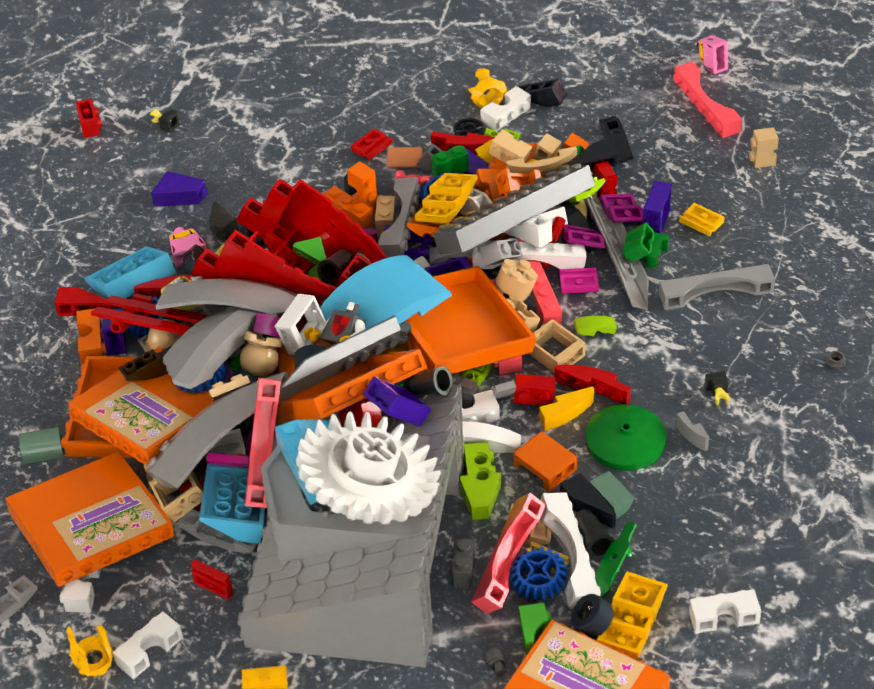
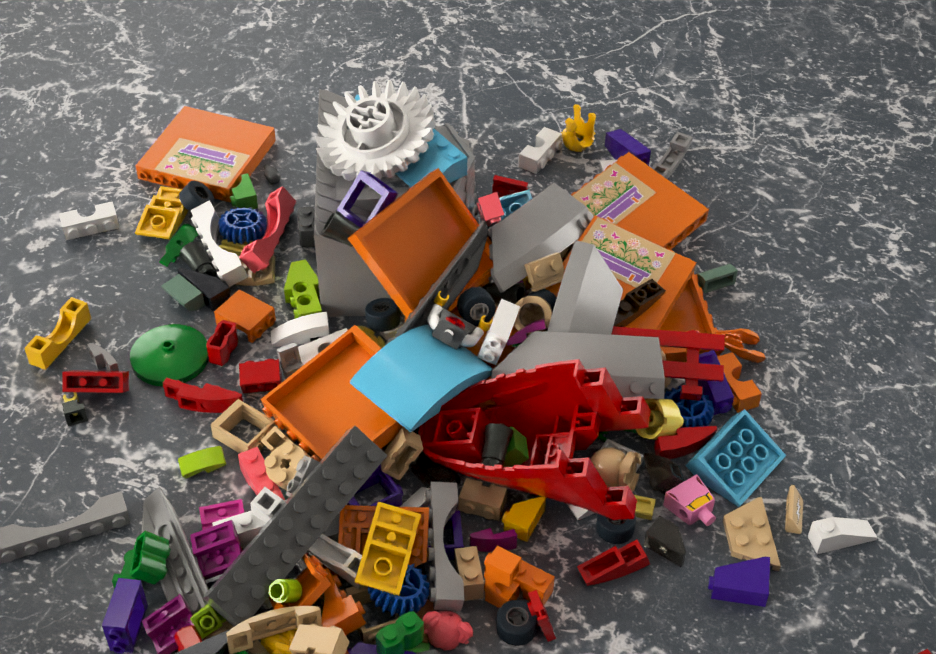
camera: 165 degrees right, 0 degrees up
(44, 615) = (621, 143): none -> dark purple slope
(68, 359) = (734, 342): none -> orange animal
(76, 299) = (772, 416): red slope -> none
(84, 212) = (839, 533): none -> white slope
(108, 234) = (794, 511): none -> tan slope
(151, 225) = (750, 533): none -> tan wing
(310, 250) = (530, 455): bright green slope -> none
(341, 172) = (537, 608): none -> red plate
(530, 173) = (285, 590): none -> lime brick
(565, 408) = (227, 366): yellow slope -> none
(570, 425) = (222, 342): none -> red brick
(697, 403) = (95, 381): none -> red brick
(701, 219) = (69, 628): yellow plate -> none
(752, 446) = (71, 321): none -> yellow arch

